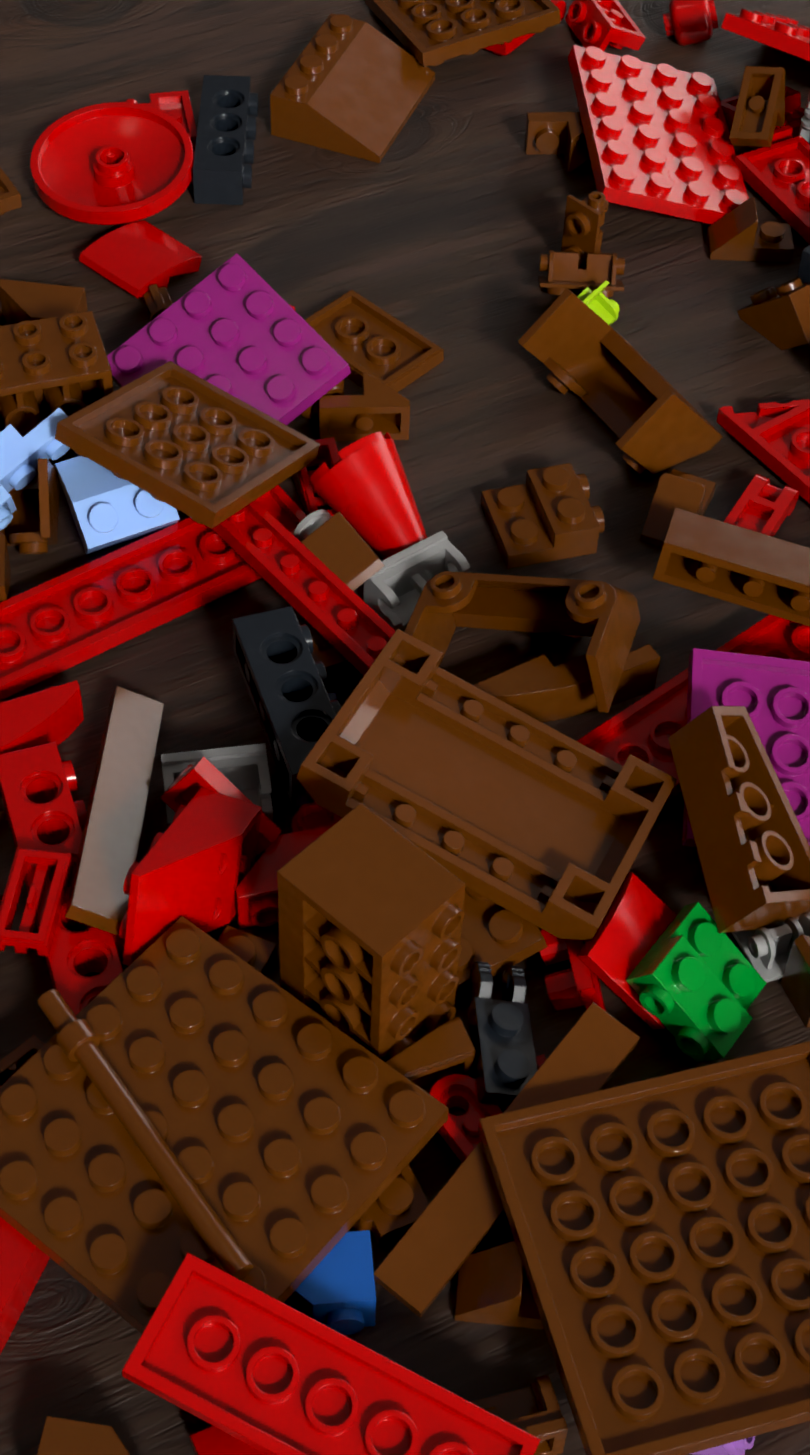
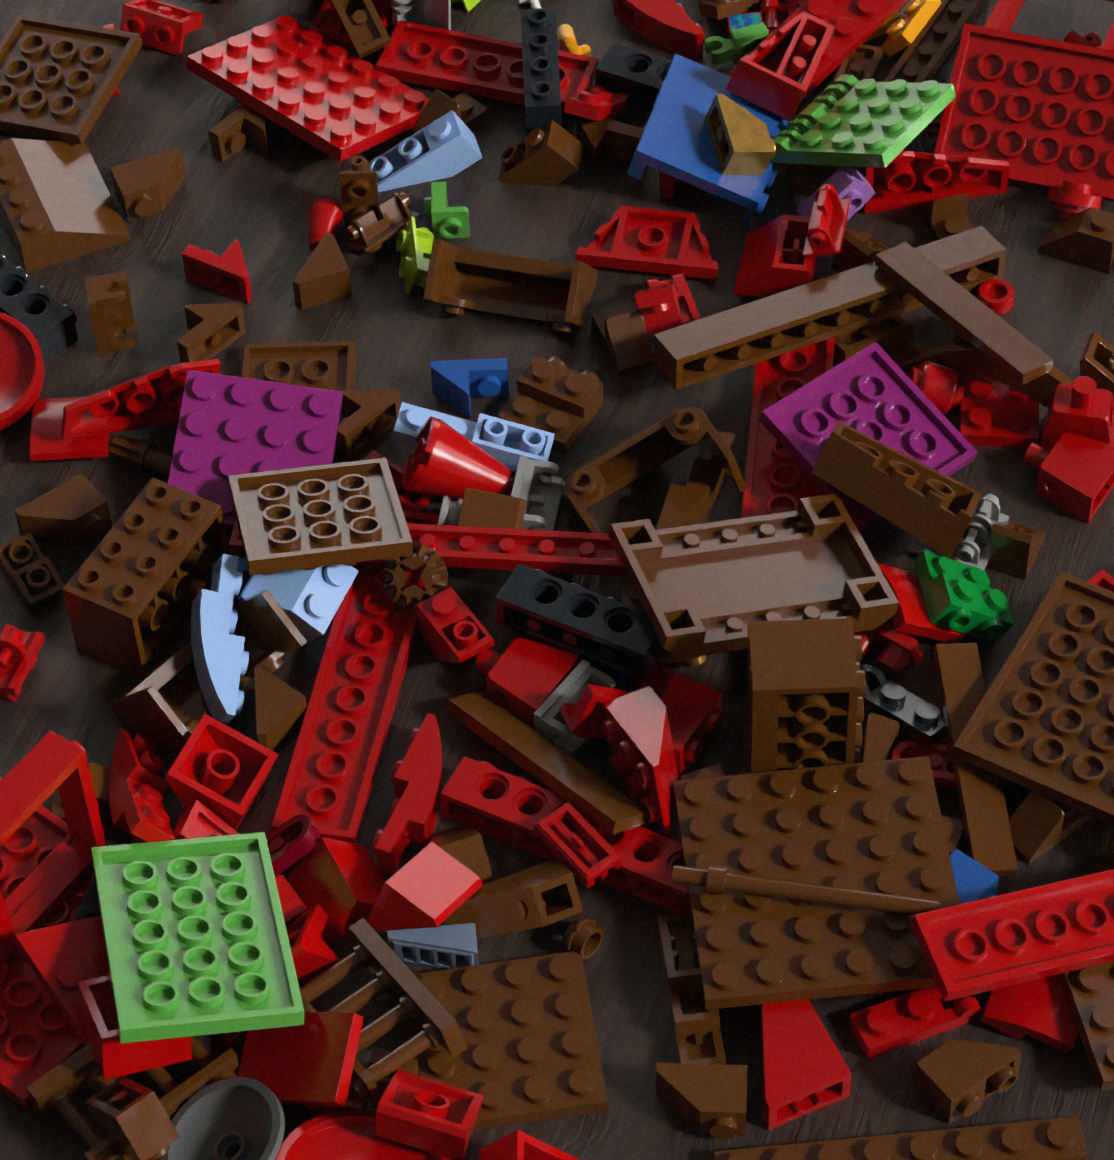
camera: 40 degrees left, 0 degrees up
(95, 1352) = (910, 1020): none -> red plate
(183, 258) = (134, 404): none -> red wedge
(199, 627) = (451, 628): none -> red slope
(209, 714) = (525, 675): none -> red torso
(226, 568) = (434, 577): none -> reddish brown gear
(268, 188) = (110, 311): none -> reddish brown hinge
(333, 265) = (210, 330): none -> reddish brown slope
(409, 226) = (221, 274): none -> red slope
(439, 126) = (148, 183): none -> reddish brown slope
(441, 497) = (494, 435): none -> light blue slope
(481, 280) = (323, 276): none -> reddish brown slope
(494, 443) = (461, 379): none -> blue slope
(536, 240) = (323, 217): none -> red cone
(646, 302) = (446, 221): none -> bright green bracket
(697, 251) = (428, 155): none -> light blue slope
(729, 495) = (659, 308): none -> red slope

